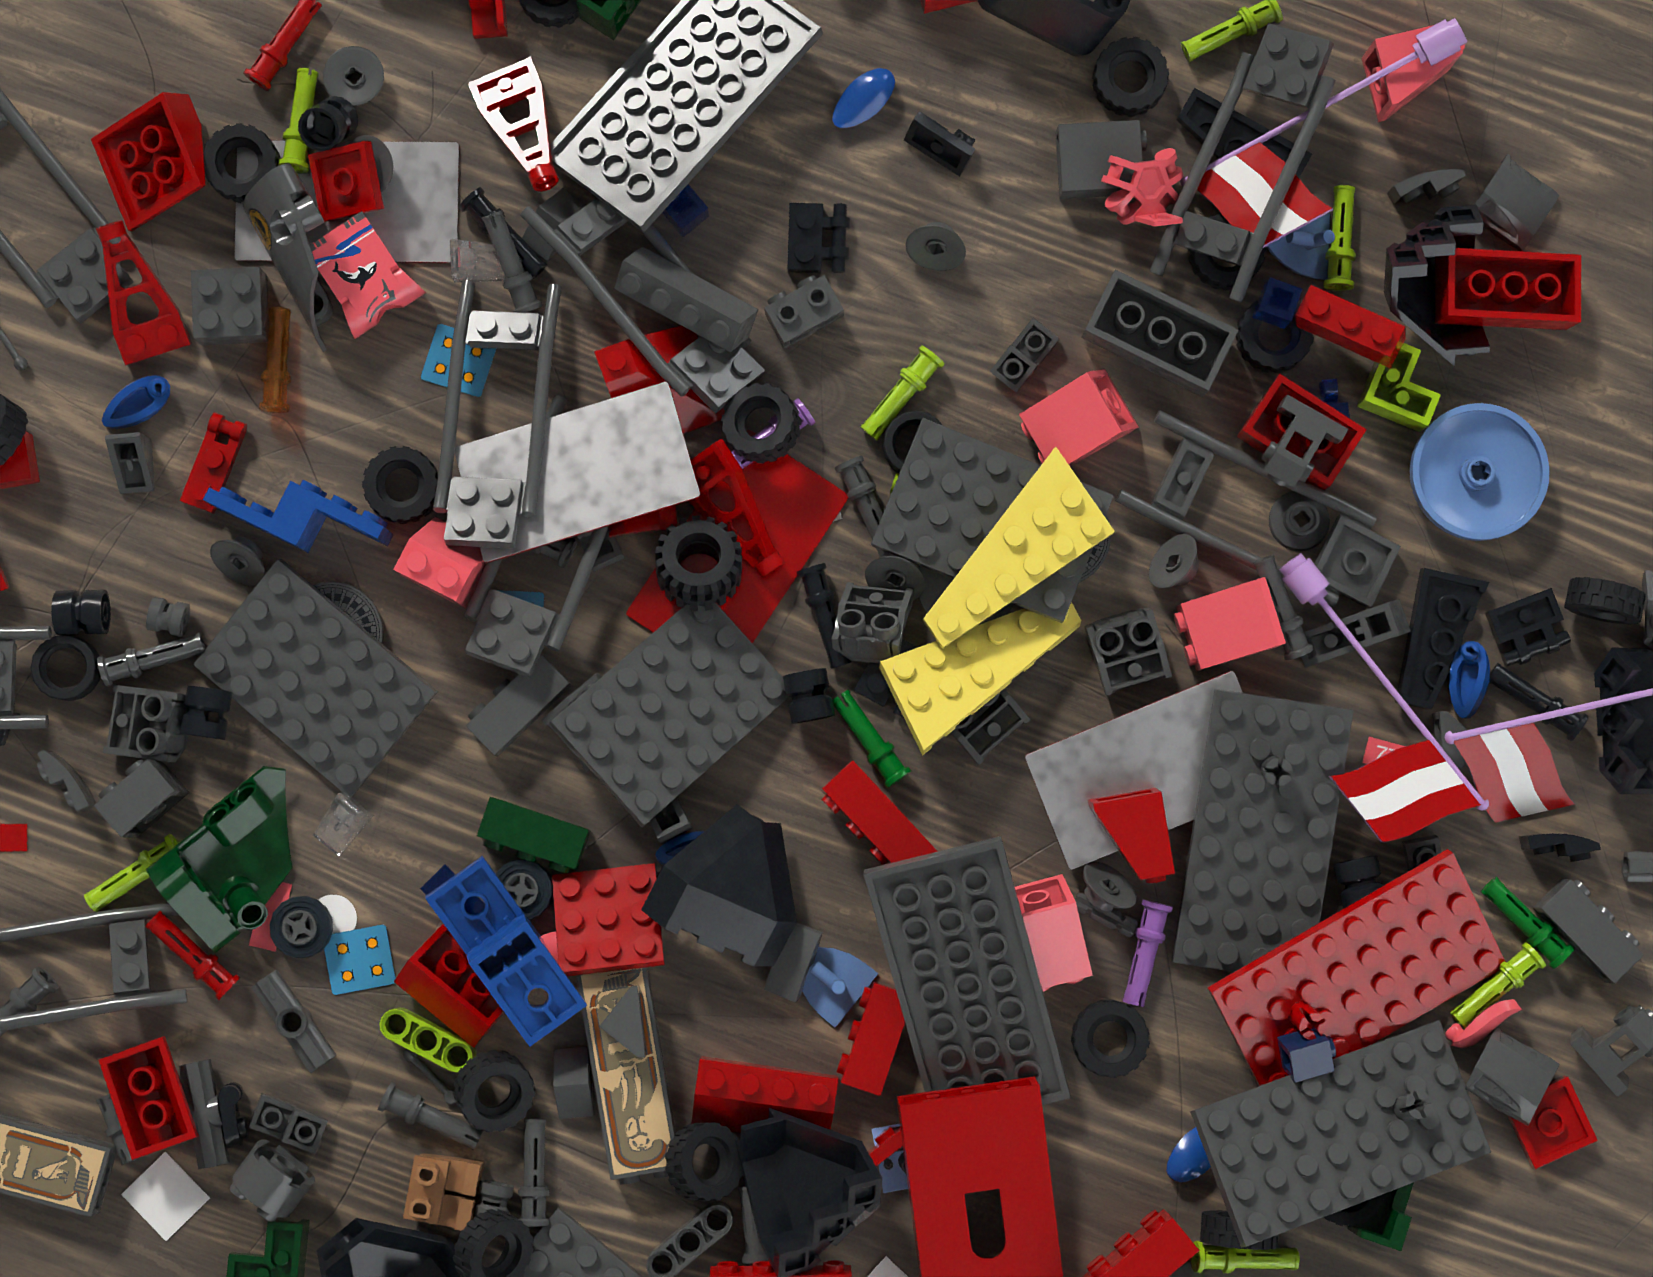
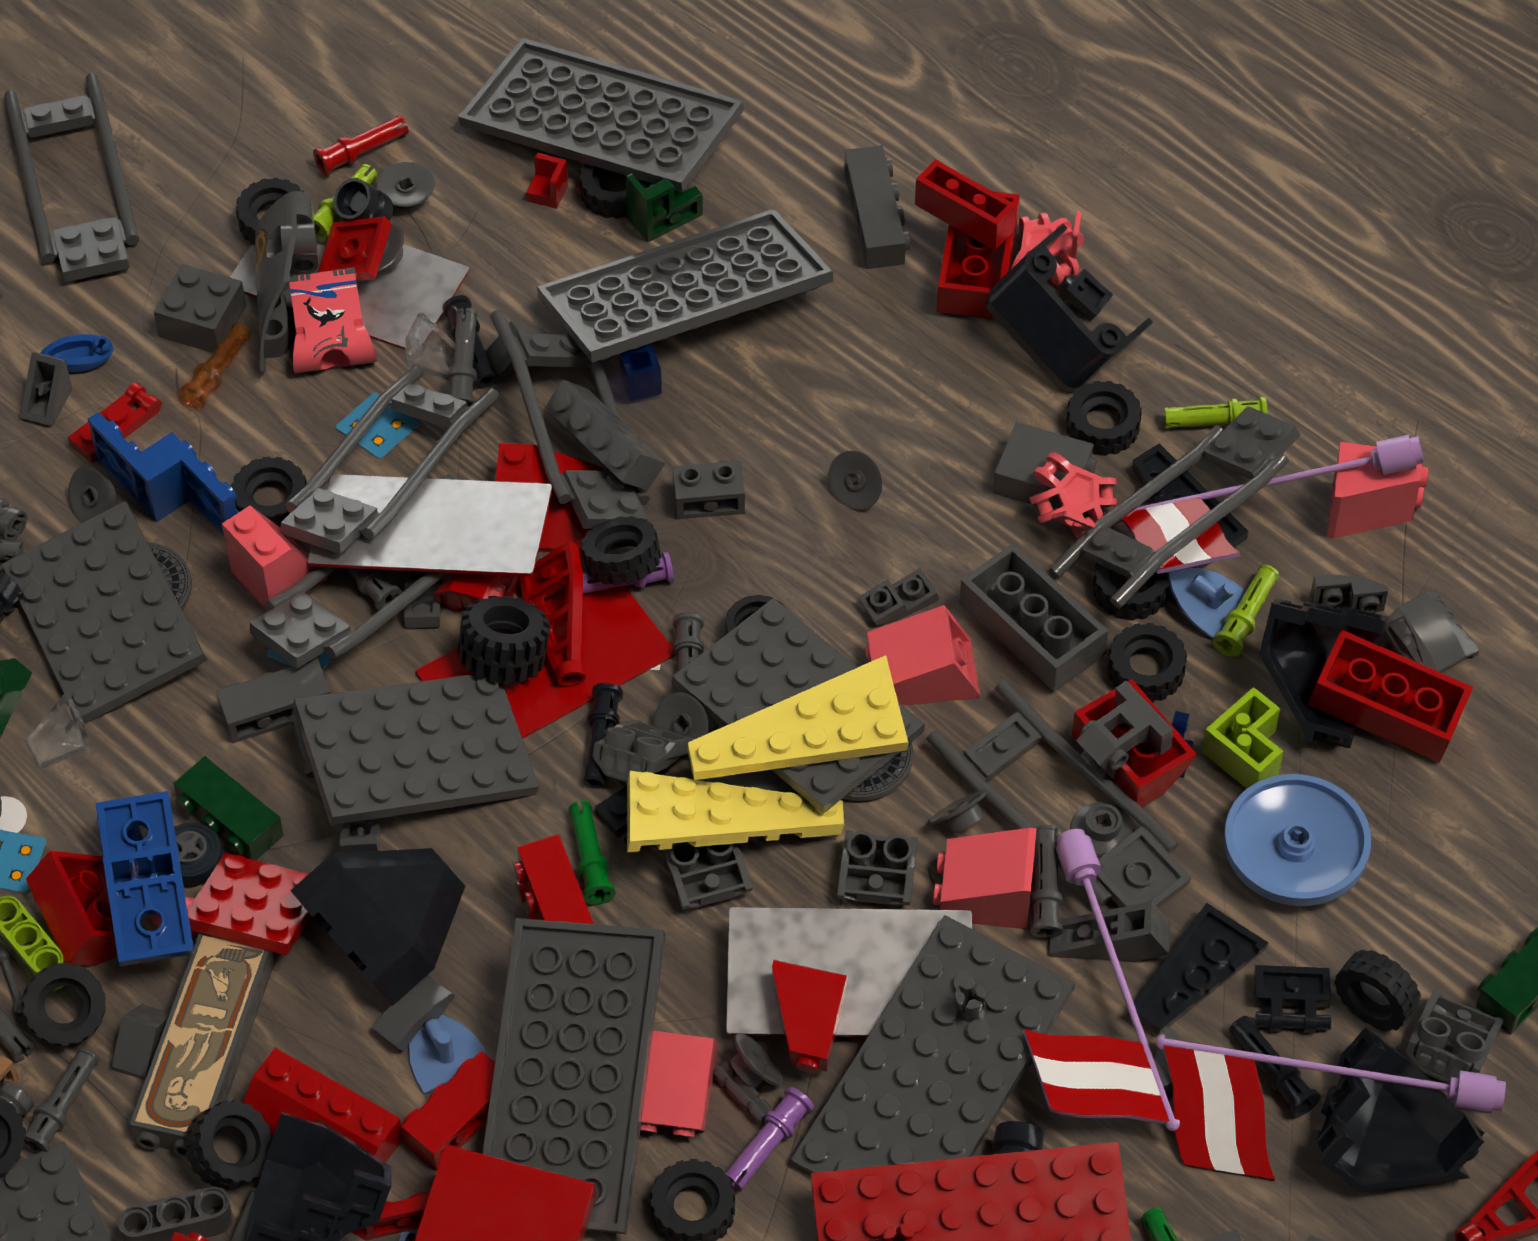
camera: 30 degrees right, 30 degrees down
(149, 337) = (123, 310): red plate -> none
(153, 157) = (200, 180): red slope -> none
(509, 87) = (524, 237): plate -> none
(626, 1022) = (224, 979): dark grey slope -> none
(805, 238) = (744, 436): black plate -> none
(808, 695) = (549, 790): black wheel -> none
(864, 98) = (848, 353): blue arm -> none
(912, 380) = (781, 578): lime pin -> none
(939, 144) = (901, 407): black hinge -> none
(1277, 303) = (1154, 618): clear blue brick -> none
(1350, 326) = (1217, 659): red brick -> none
(1469, 678) = (1212, 1015): blue arm -> none
(1574, 846) = (1255, 1208): black slope -> none

